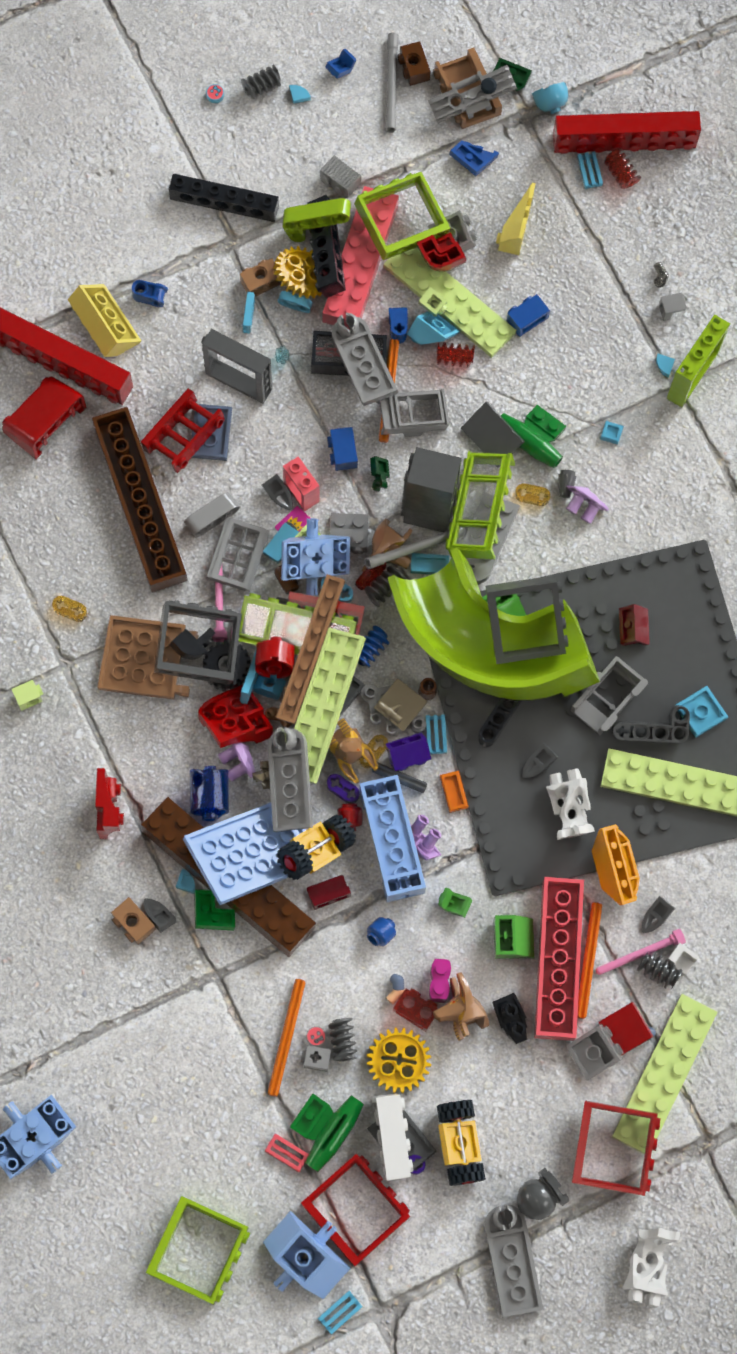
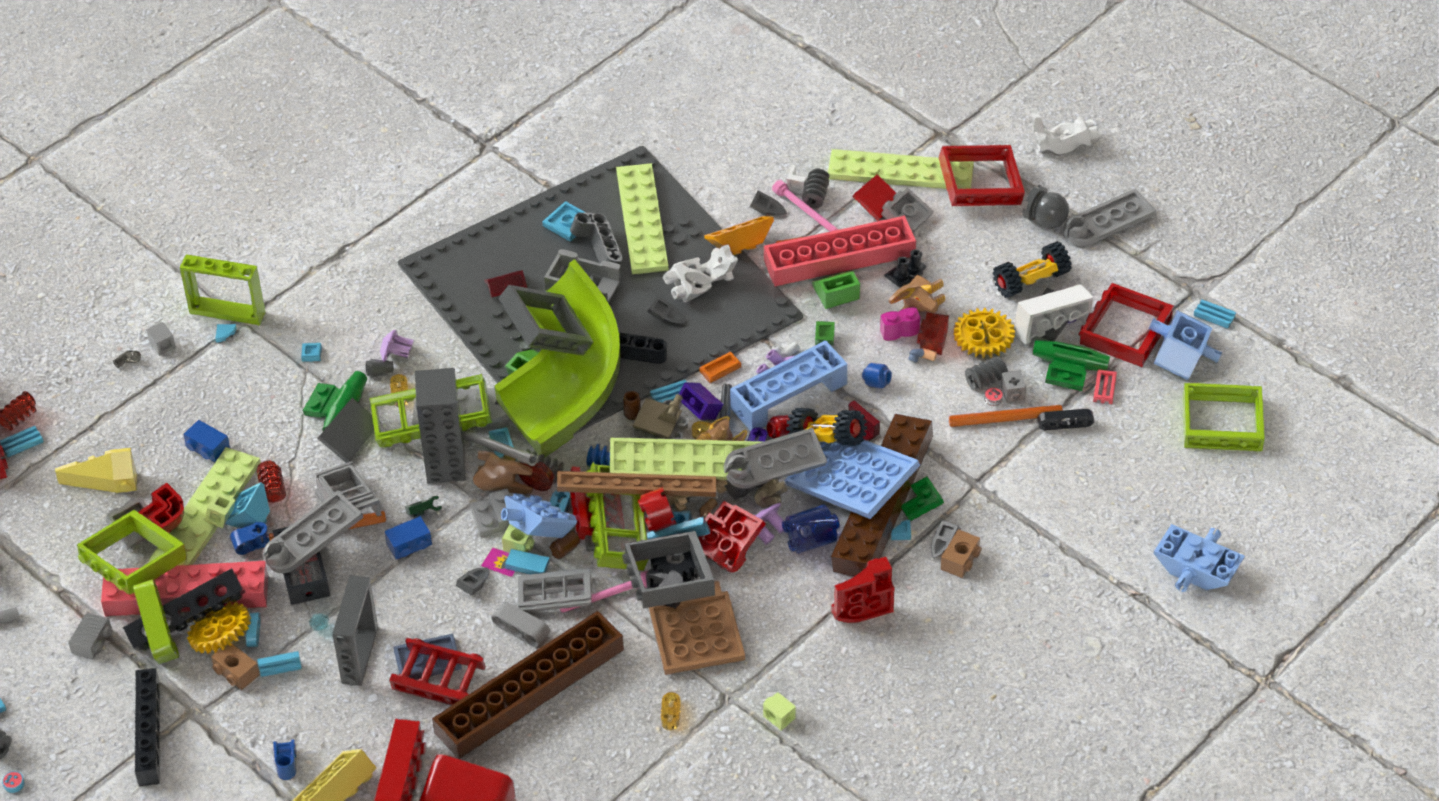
camera: 105 degrees left, 25 degrees down
(256, 1091) = (1083, 417): none -> black beam
(303, 488) = (462, 552): coral window -> none
(449, 857) = (787, 352): none -> white arm
(472, 156) = (33, 534): blue wing -> none

